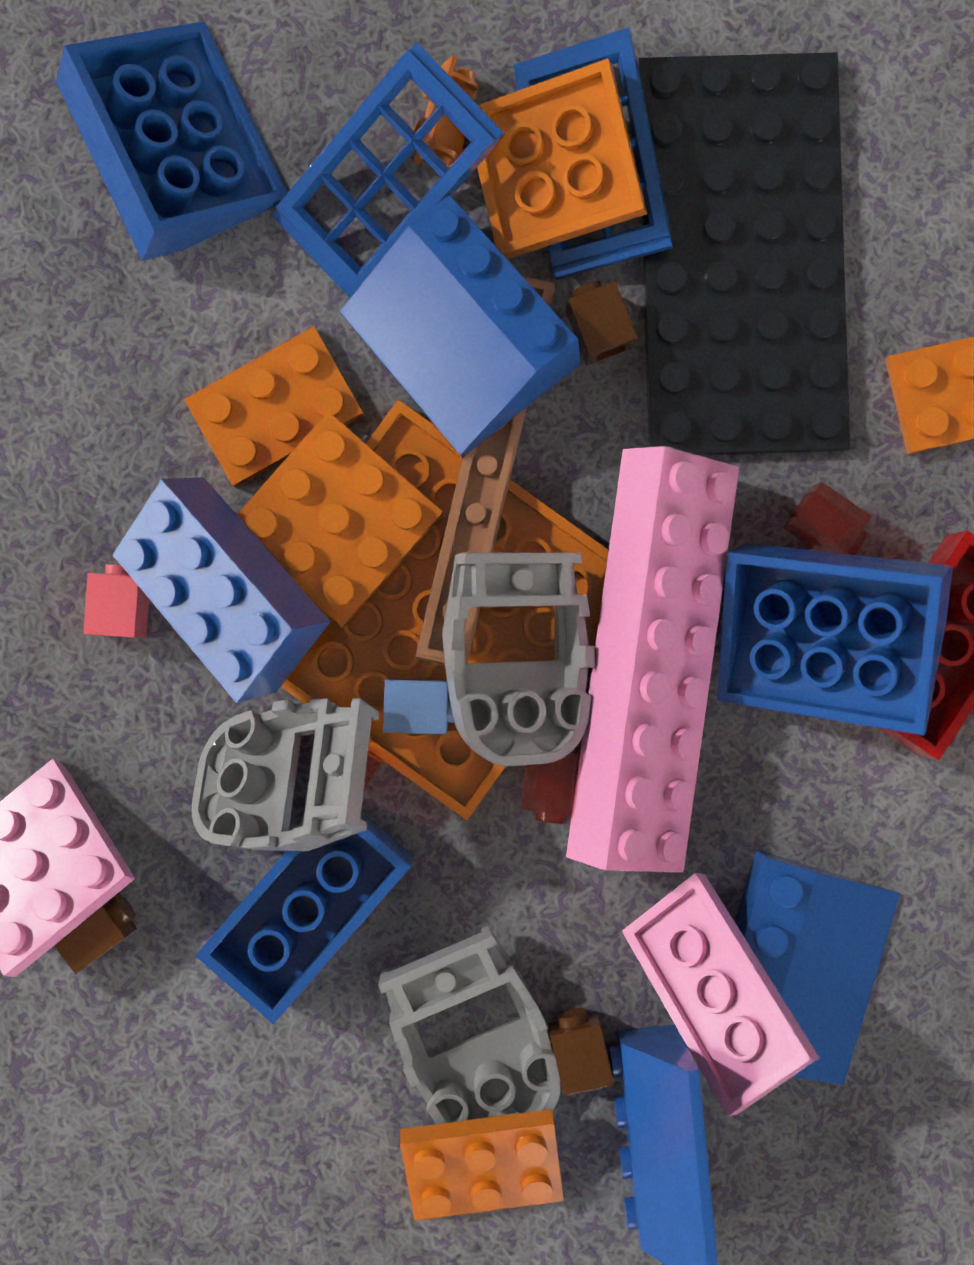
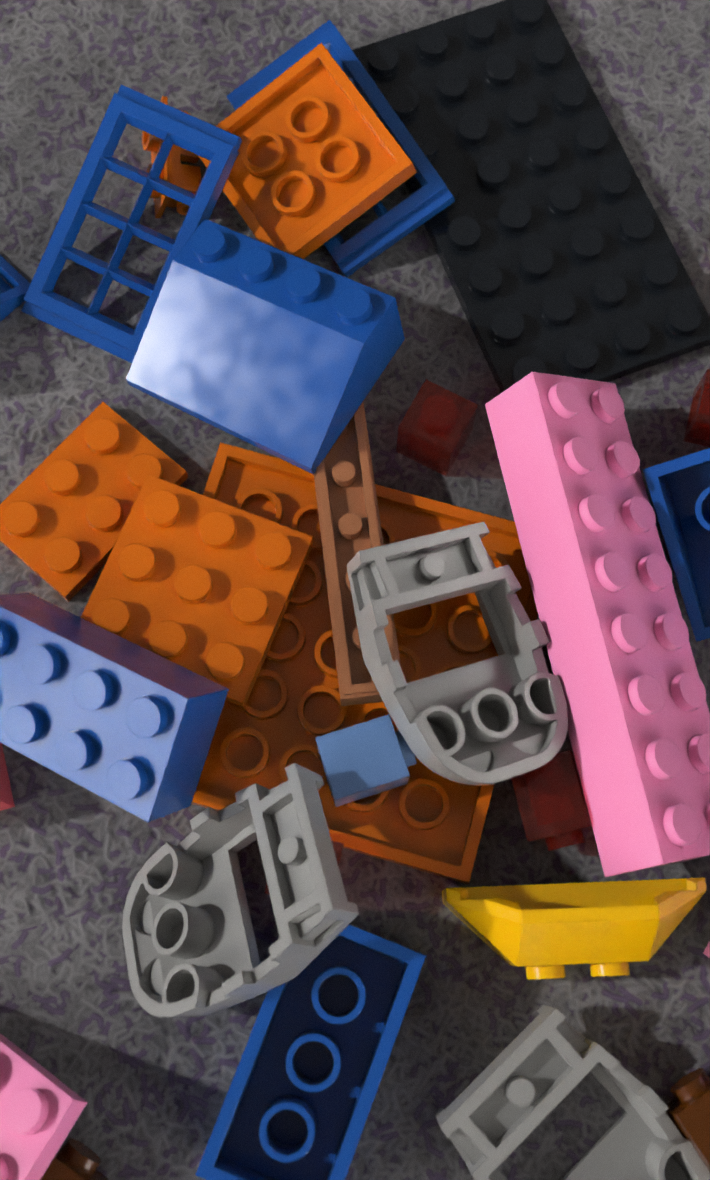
camera: 20 degrees left, 15 degrees down
(534, 877) = (576, 921): none -> yellow wedge
(578, 449) = (436, 427): none -> clear red brick
(600, 321) = (420, 294): reddish brown brick -> none

